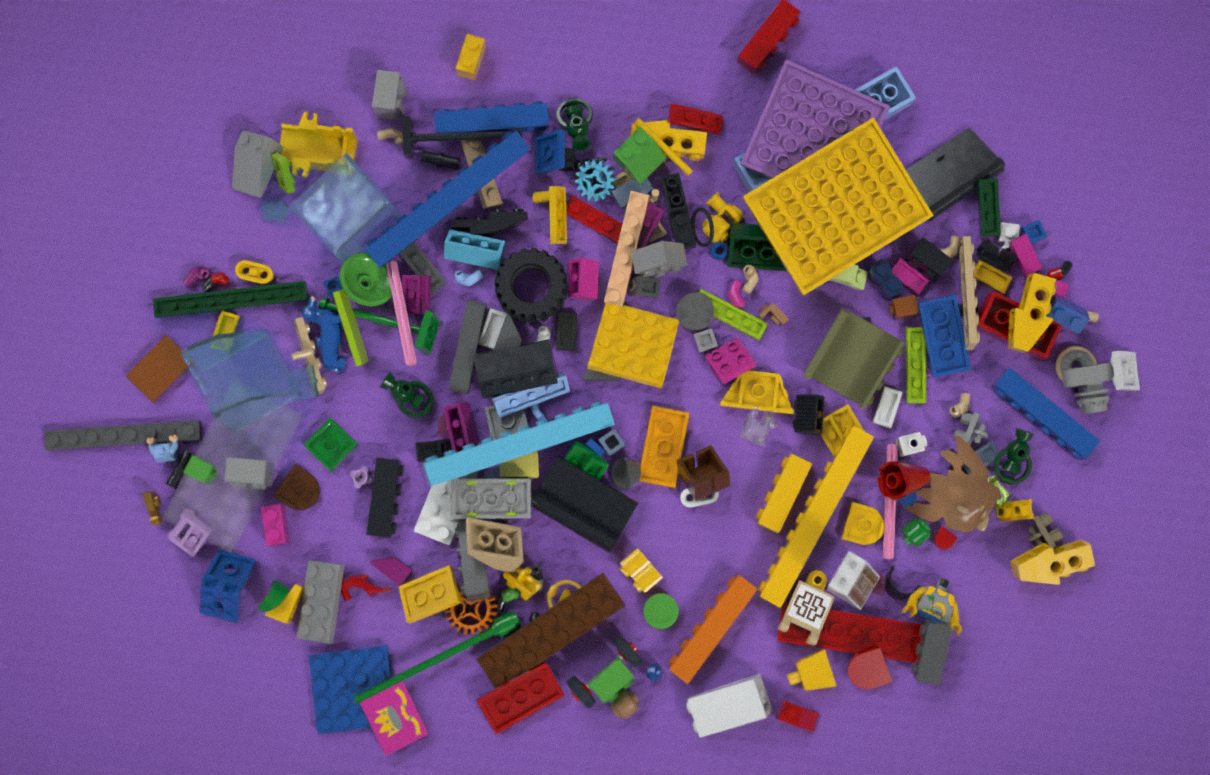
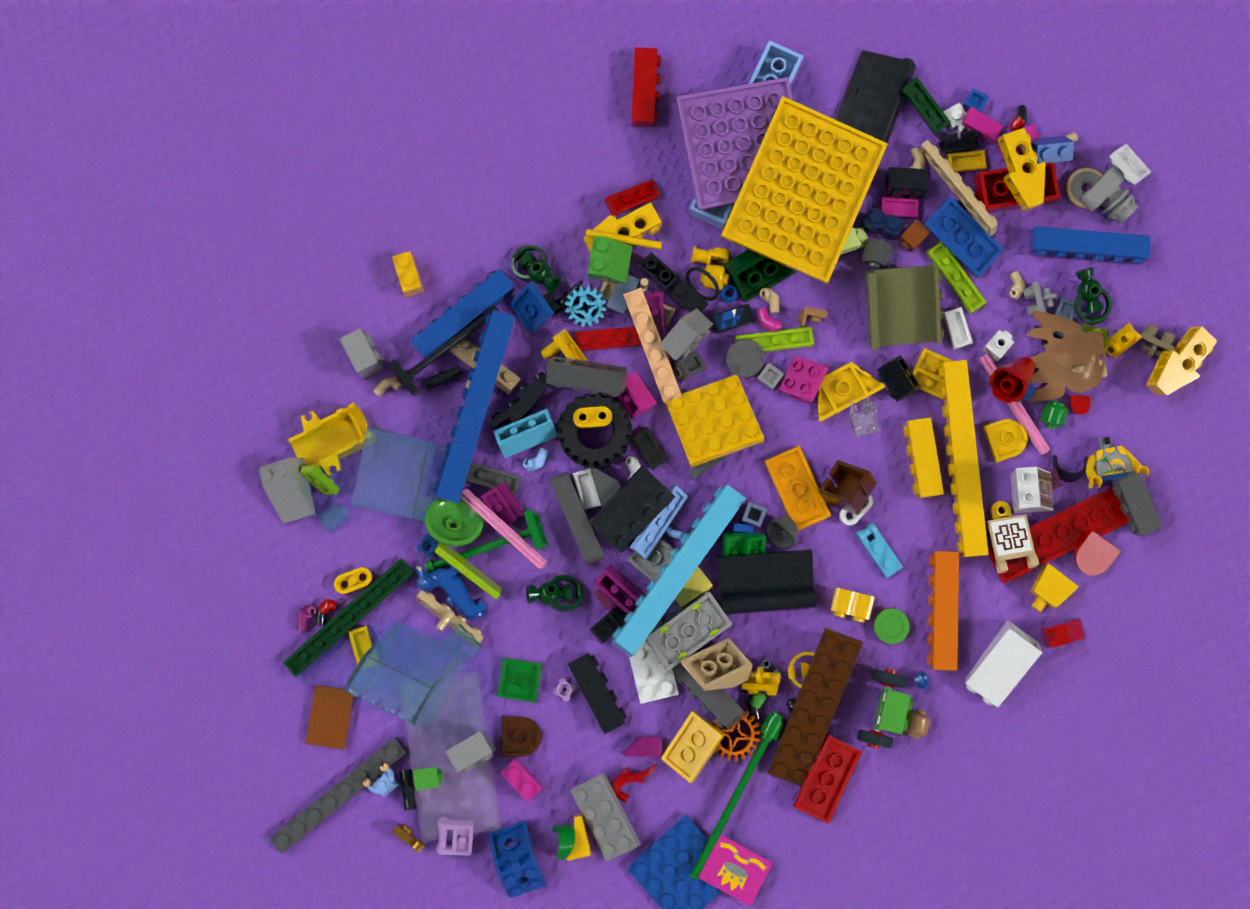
camera: 25 degrees left, 0 degrees up
(534, 272) = (592, 417): none -> yellow plate
(554, 236) = (586, 376): none -> dark grey brick
(694, 543) = (879, 550): none -> medium azure plate
(707, 272) = (732, 318): none -> slope
(863, 300) = (877, 253): none -> dark grey brick

